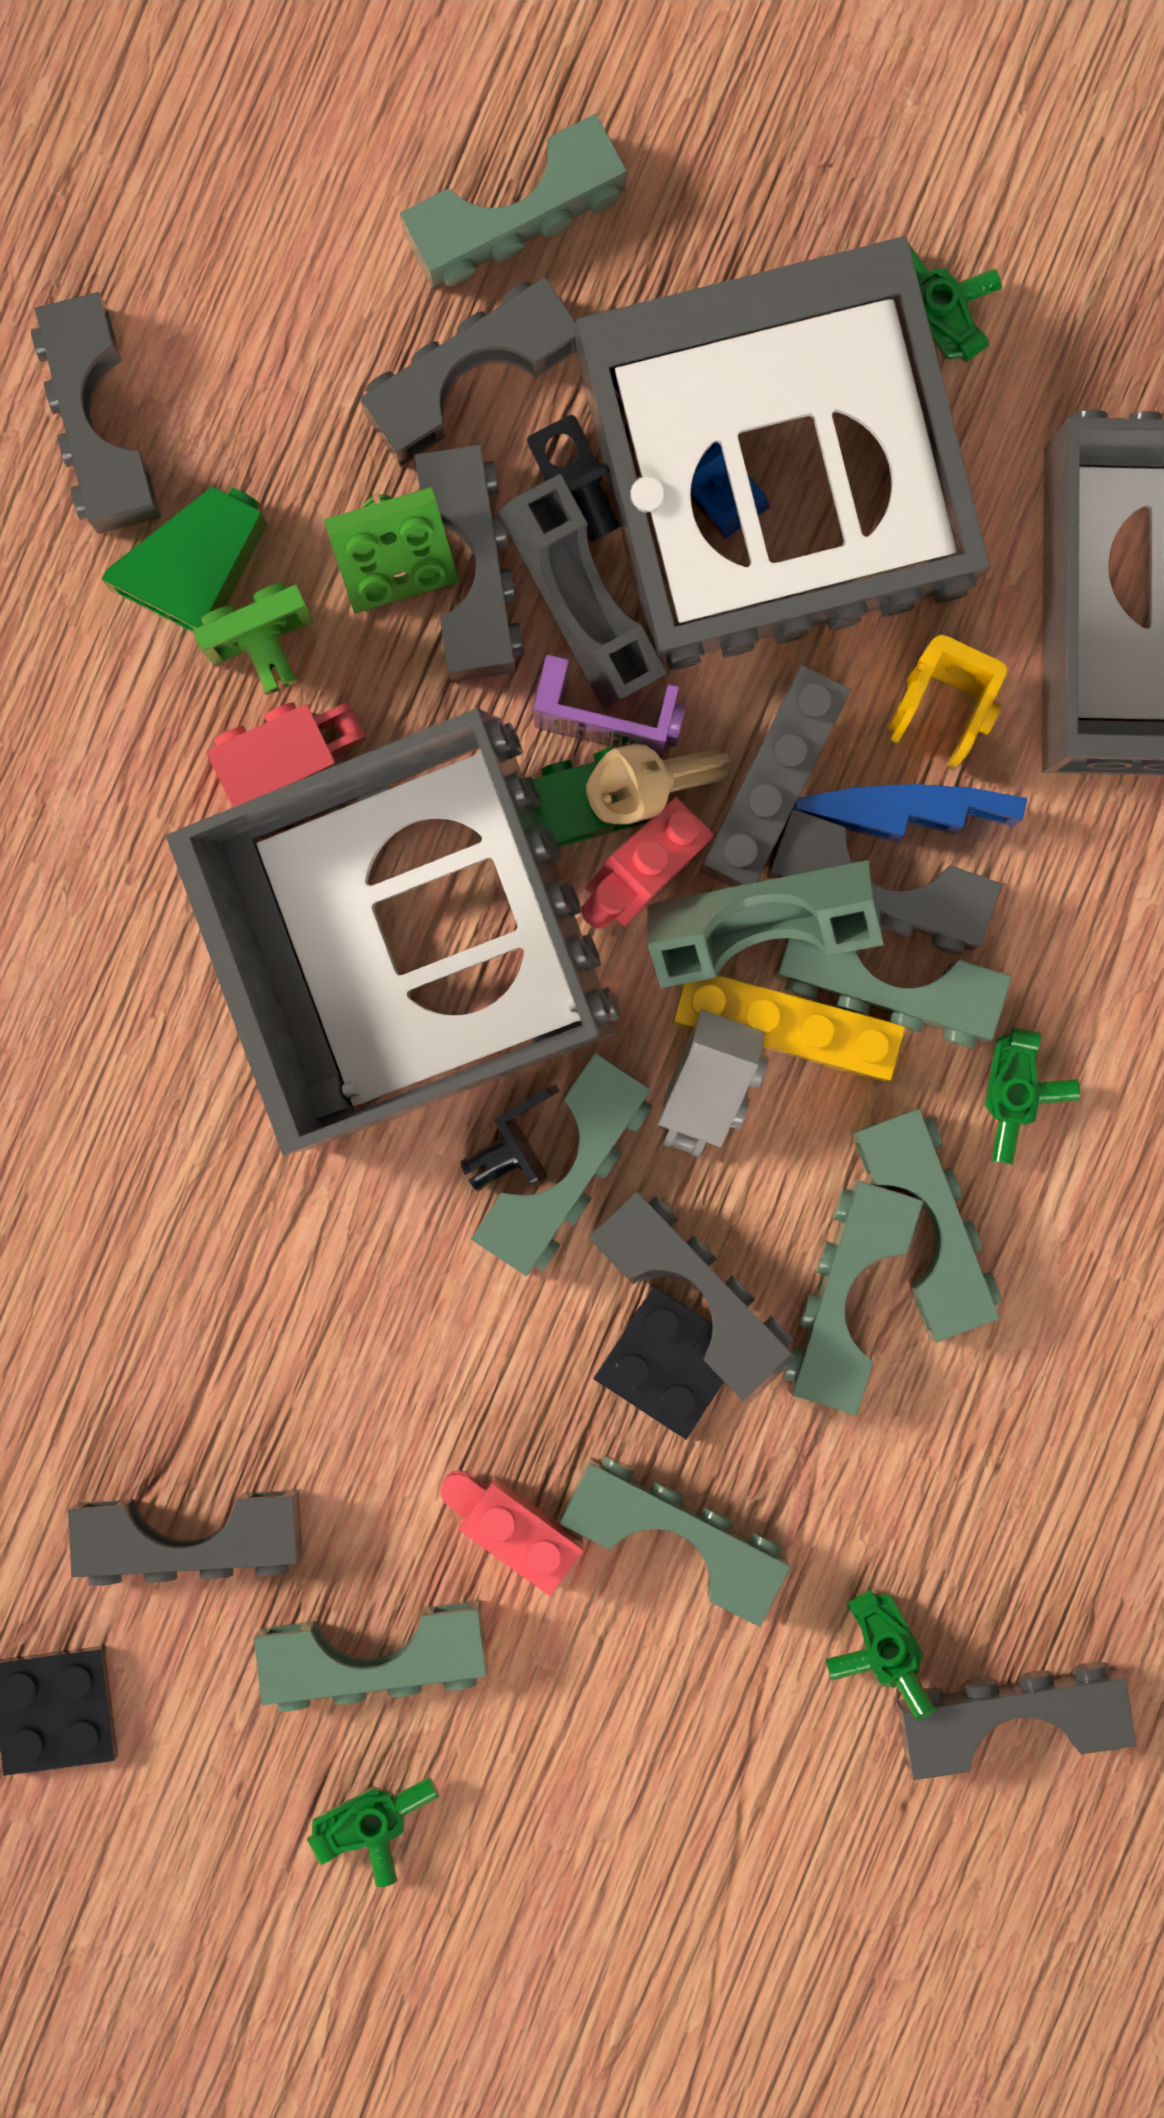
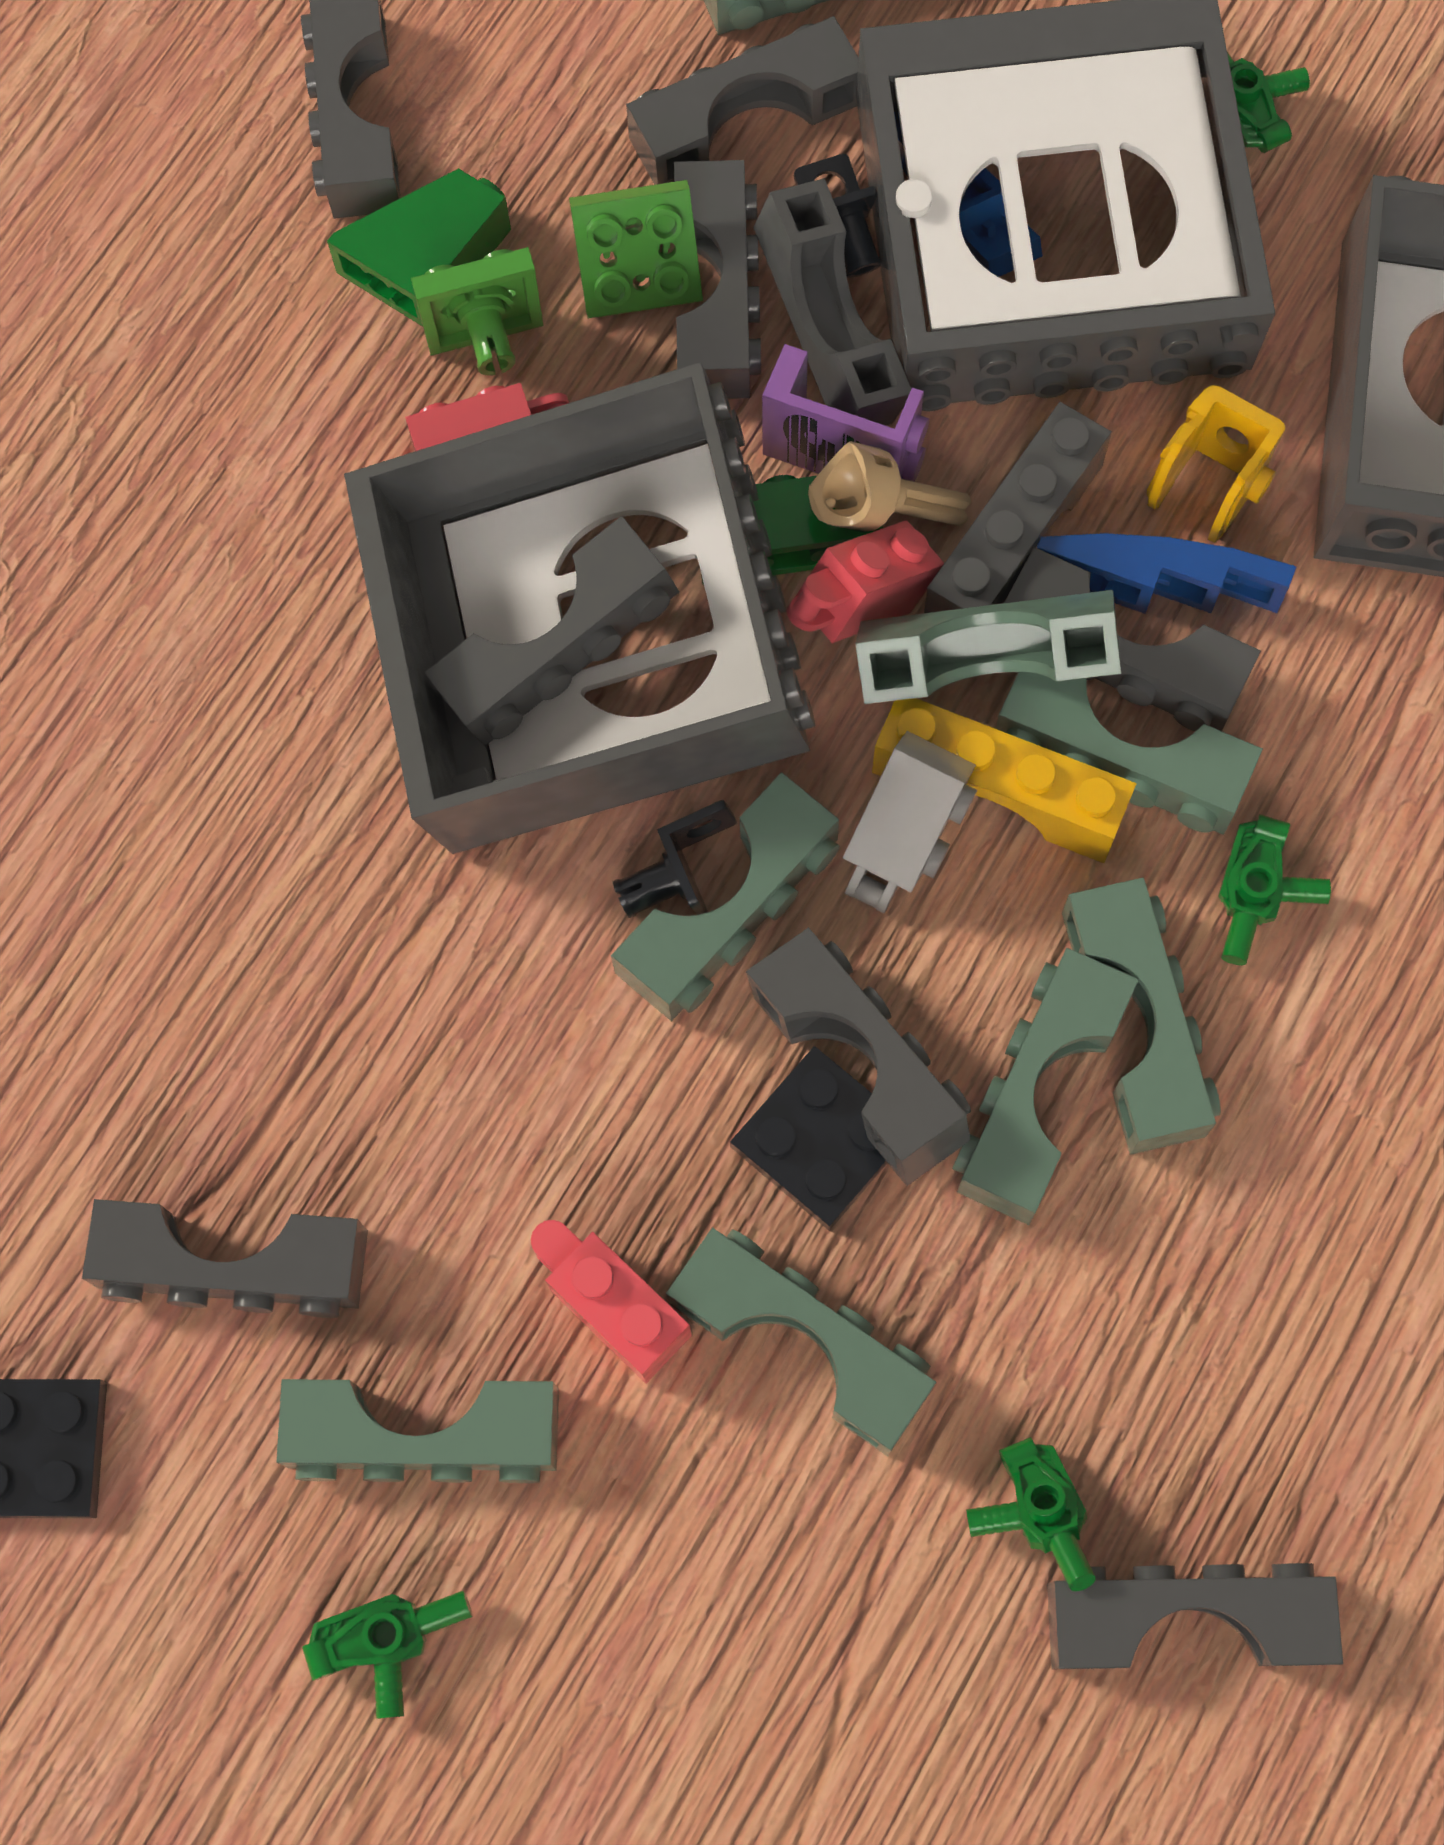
camera: 15 degrees right, 15 degrees down
(425, 902) = (614, 592): none -> dark grey arch

